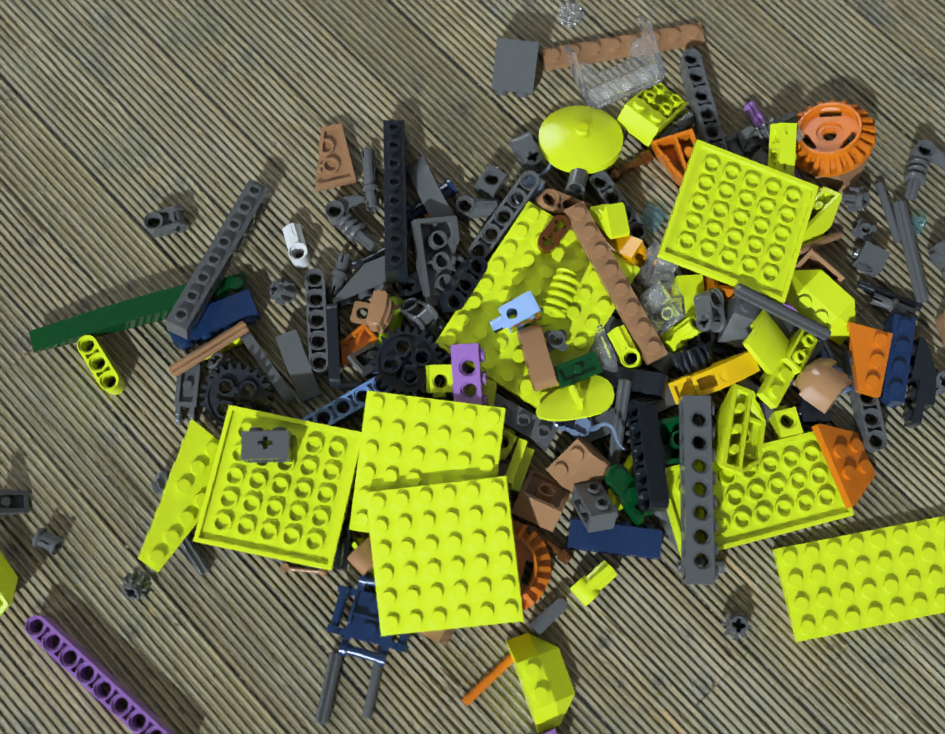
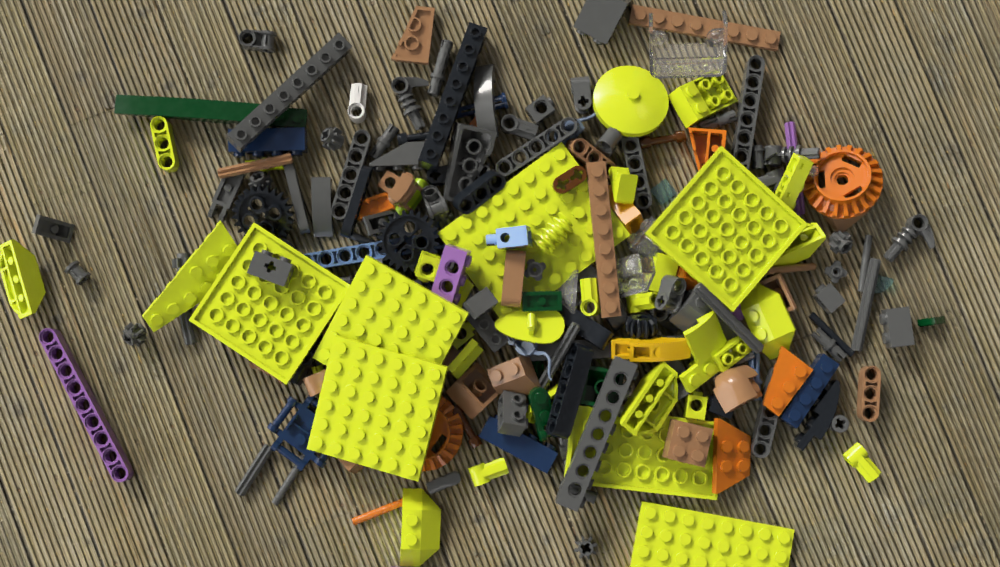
camera: 20 degrees right, 10 degrees up
(513, 396) = (481, 303): none -> dark grey slope
(797, 462) = (687, 443): none -> medium nougat brick

